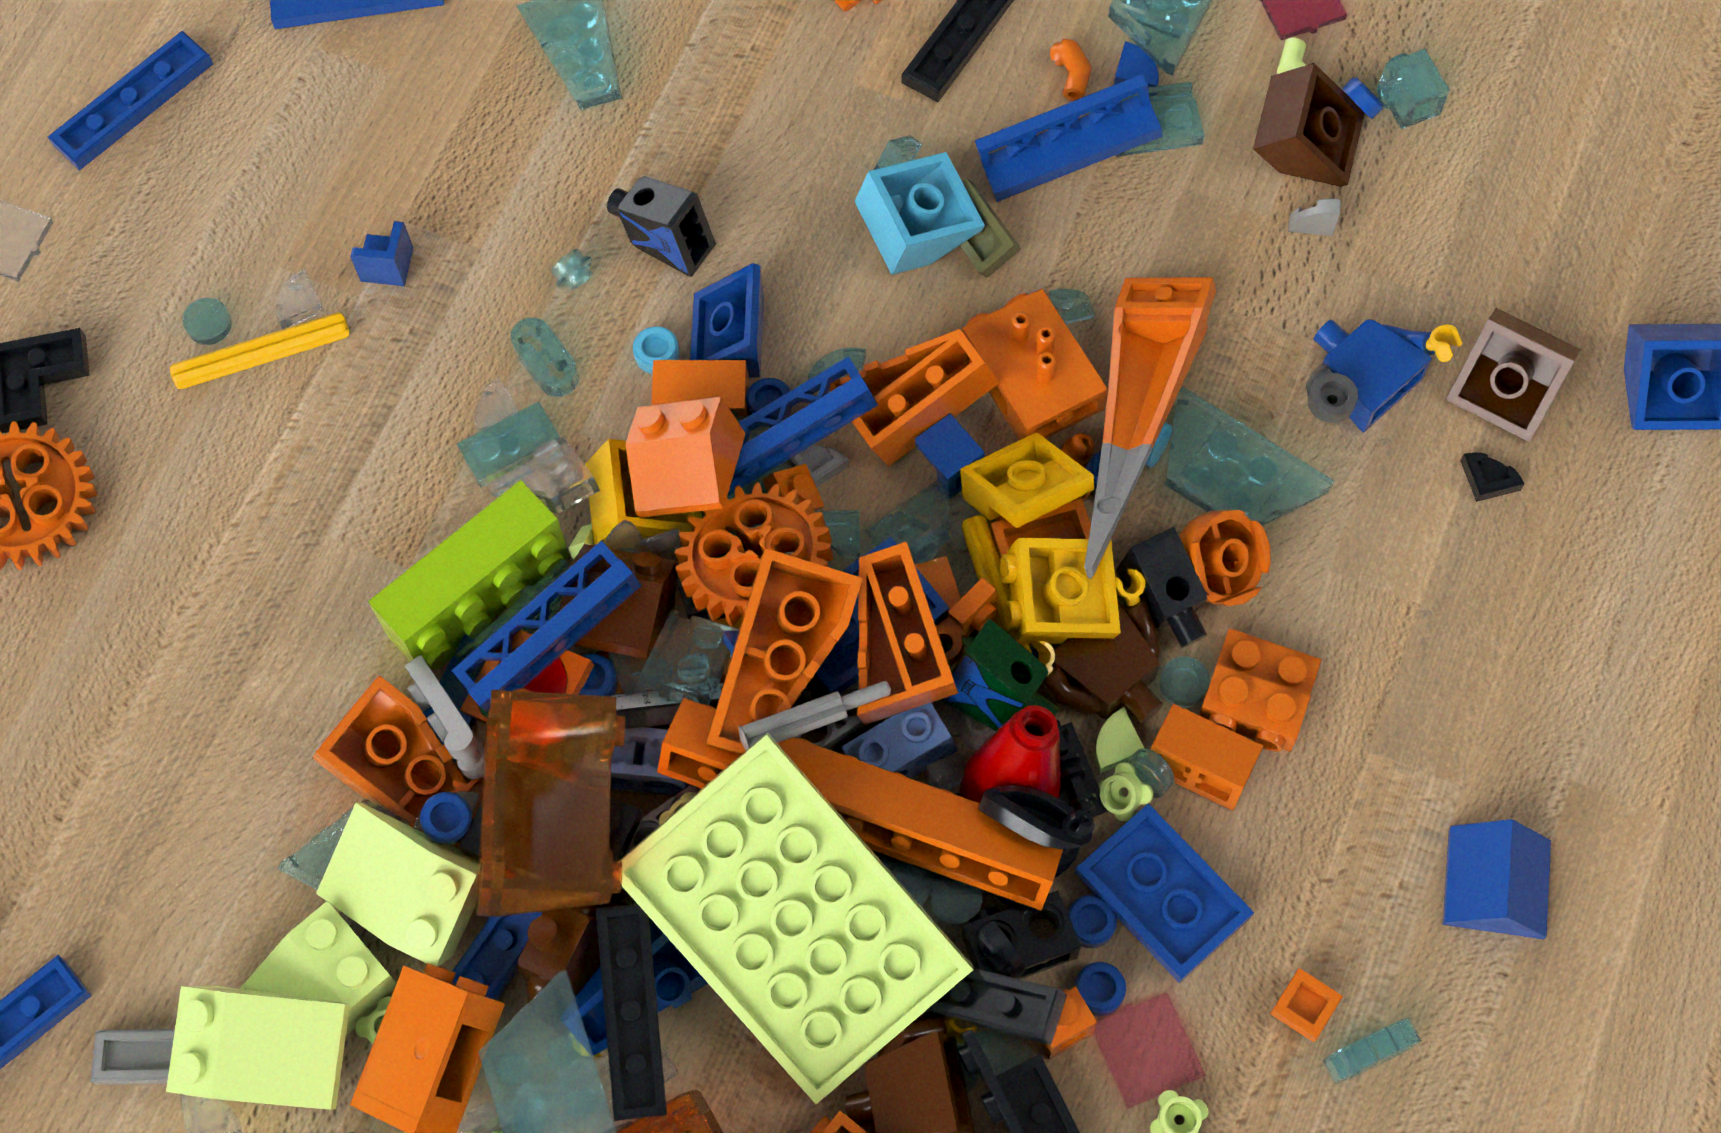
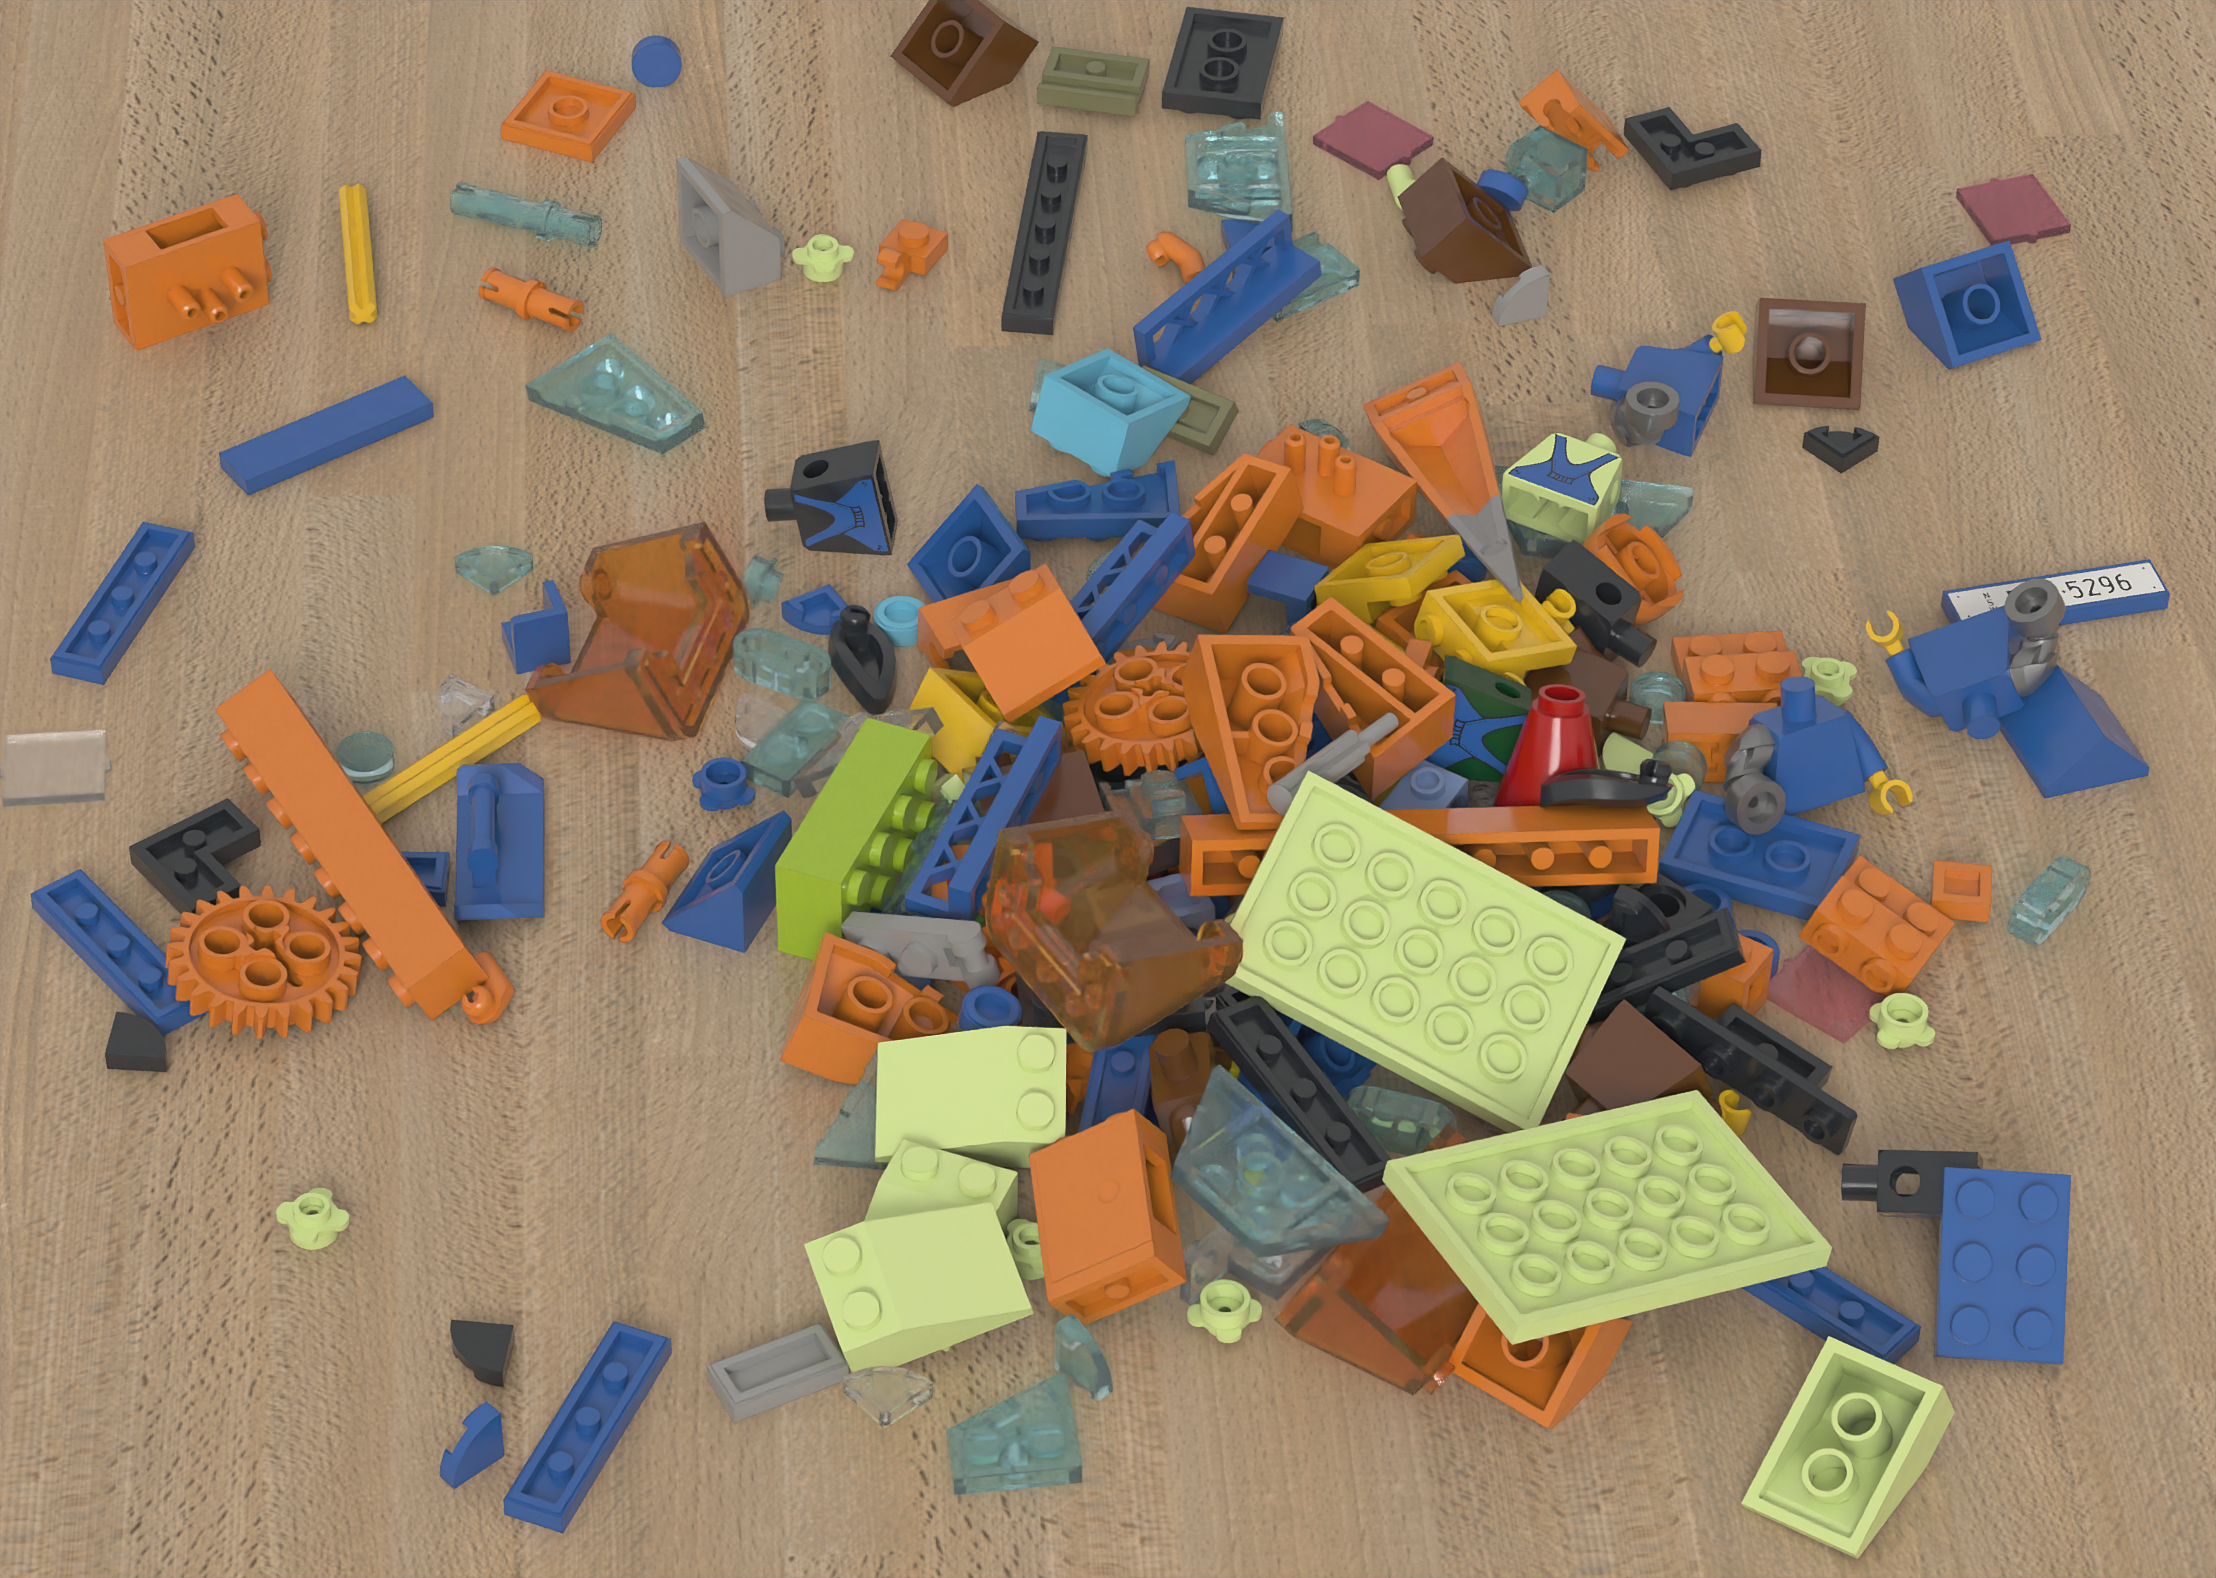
camera: 30 degrees left, 25 degrees down
(132, 414) = (351, 845): none -> orange brick
(161, 593) = (491, 996): none -> orange arm
(182, 453) = (434, 872): none -> blue tile
(246, 452) = (499, 843): none -> blue piece
(319, 541) = (644, 891): none -> orange pin
(373, 566) = (733, 887): none -> blue slope
(398, 173) = (494, 566): none -> clear light blue tile
(428, 450) = (723, 785): none -> blue plate
(457, 307) = (658, 638): none -> clear orange windscreen
(602, 381) = (863, 659): none -> black arm
(603, 316) = (814, 610): none -> blue tile
(722, 1038) = (1399, 1118): none -> clear light blue beam
(873, 306) = (1097, 510): none -> blue wing
(1209, 1020) = (1876, 929): none -> orange plate
(1221, 448) = (1564, 486): none -> yellowish green torso
(1238, 818) = (1802, 760): none -> blue torso
(1326, 739) = (1830, 678): none -> yellowish green plate
(1448, 781) = (1981, 663): none -> blue torso
(1457, 51) = (1568, 112): none -> orange hinge
(1537, 118) = (1687, 157): none -> black plate
(1573, 720) = (2086, 593): none -> tile

